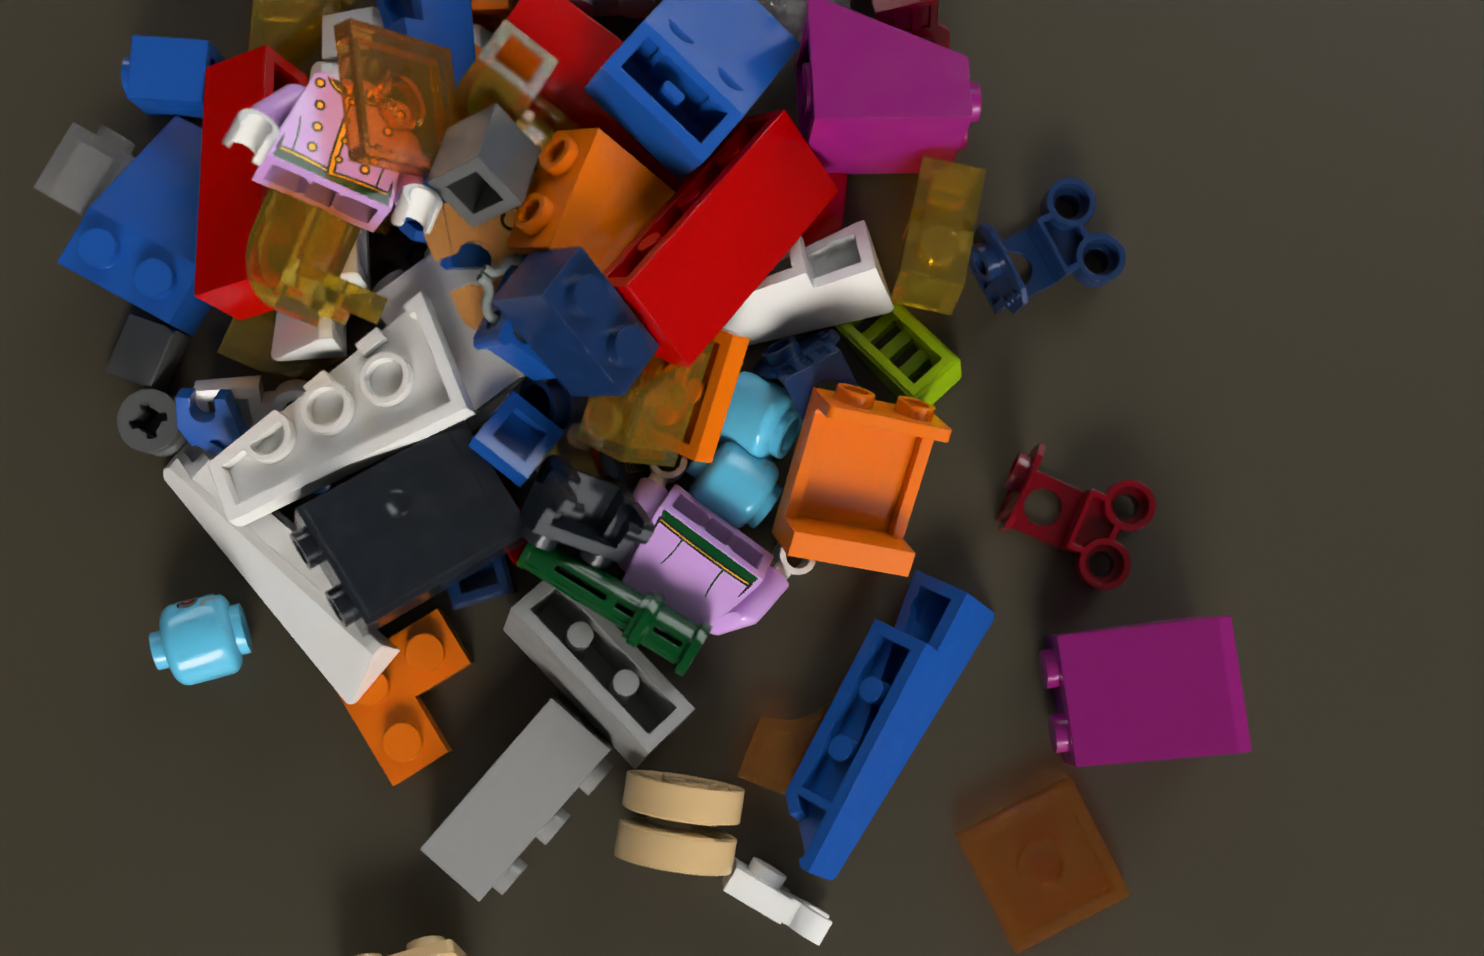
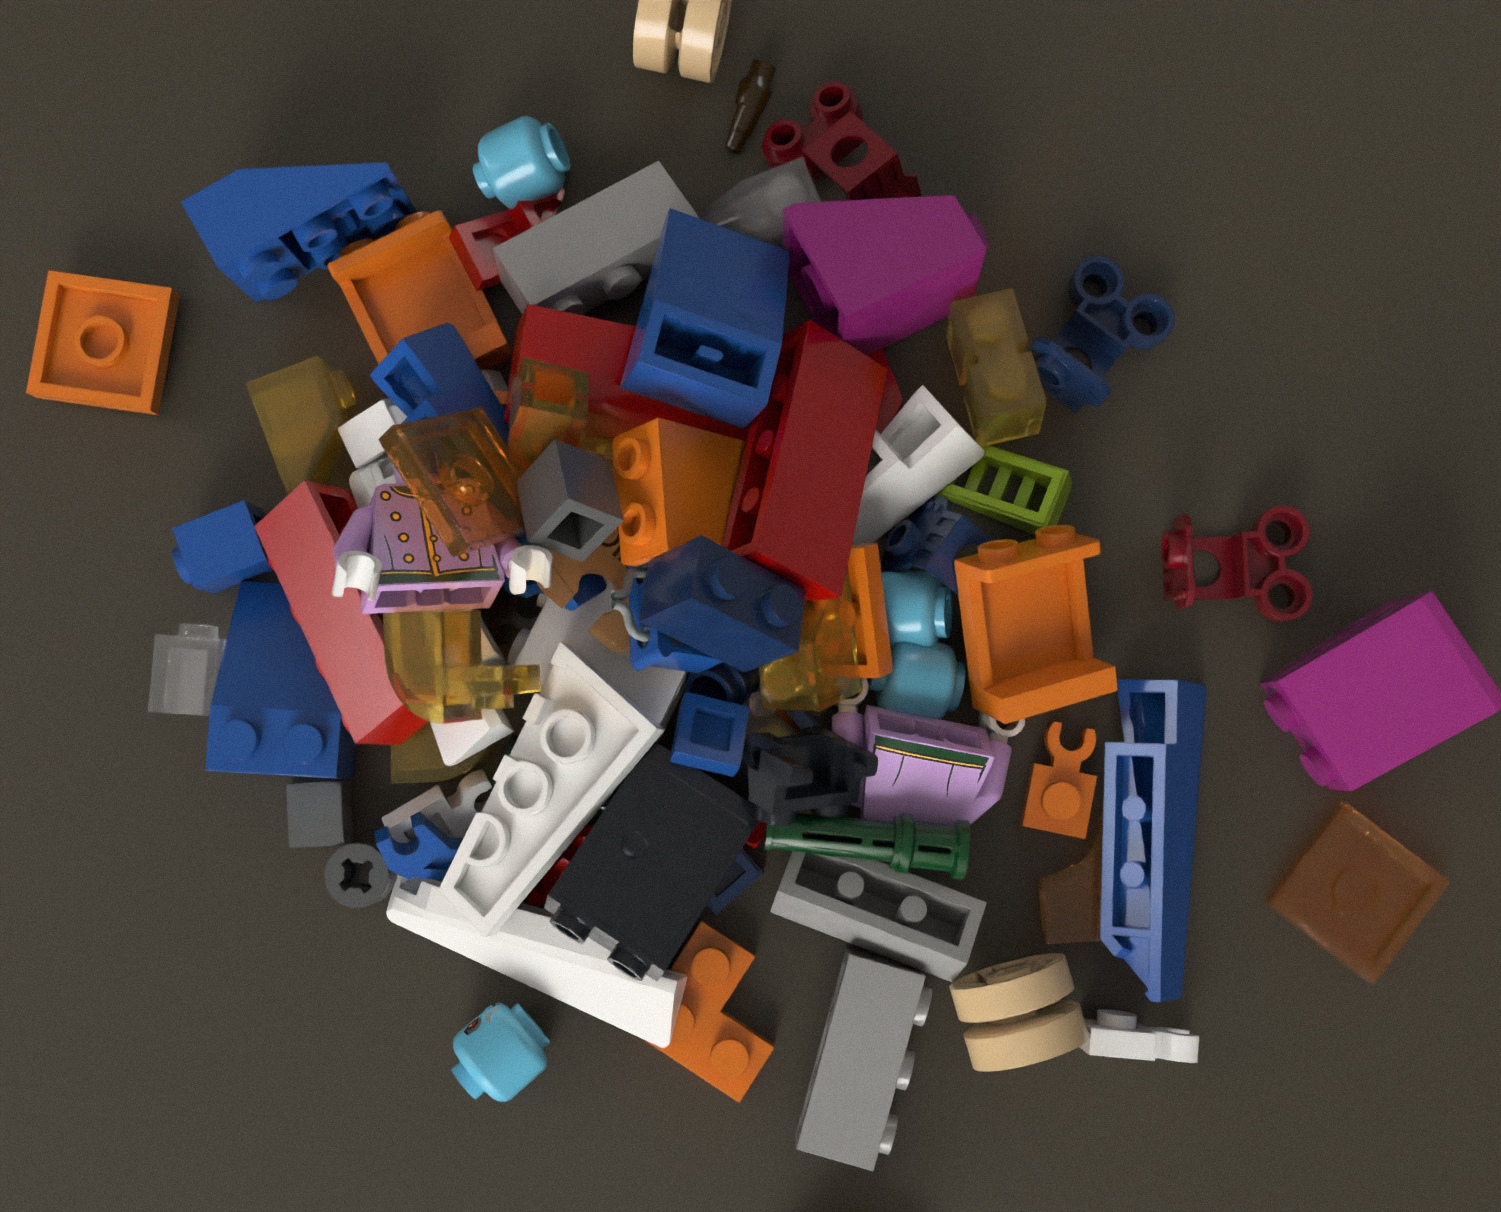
camera: 20 degrees left, 0 degrees up
(814, 647) = (1058, 794): none -> orange plate

